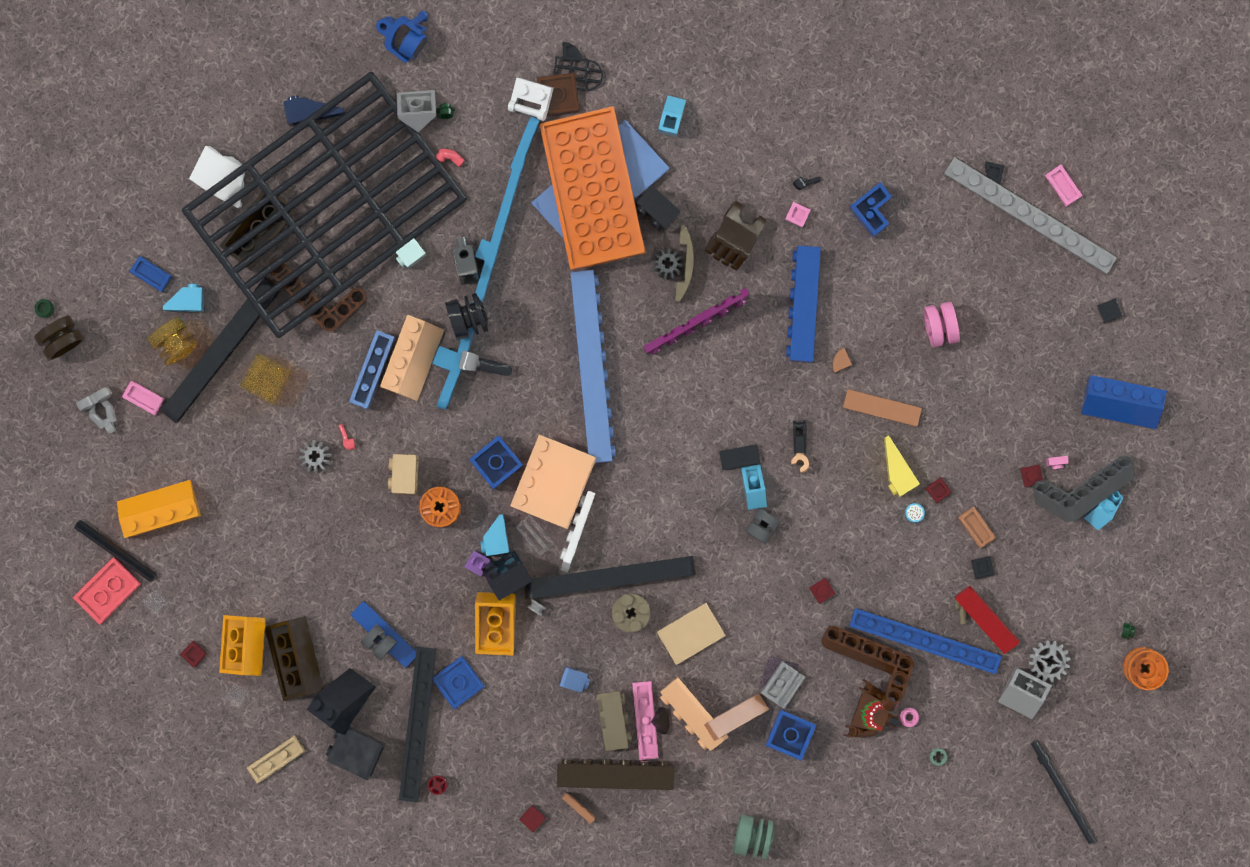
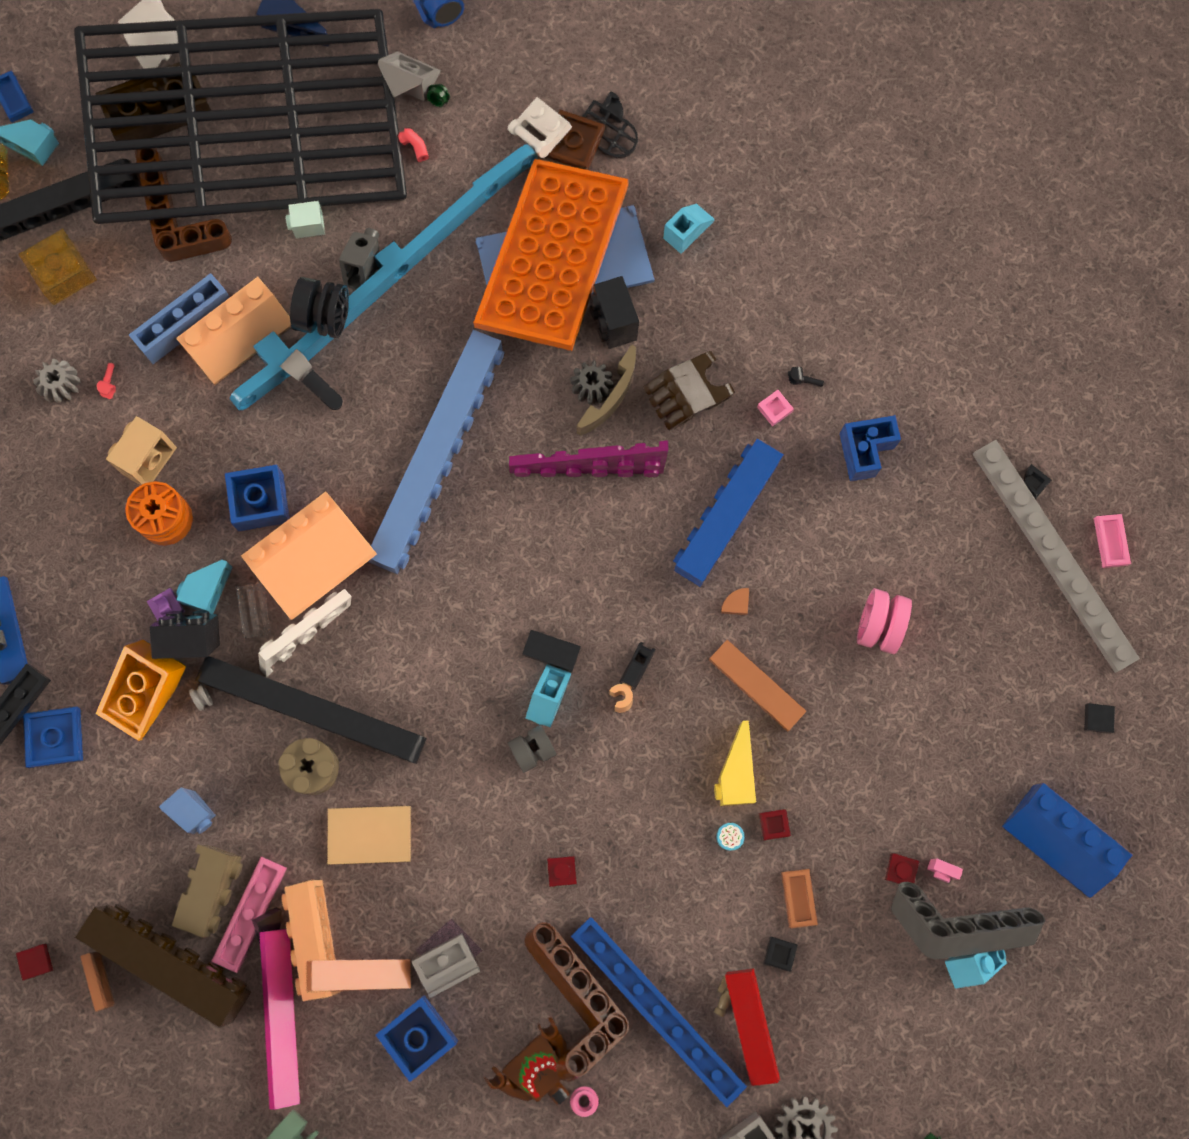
camera: 25 degrees right, 10 degrees down
(700, 768) = (279, 1019): none -> dark pink tile

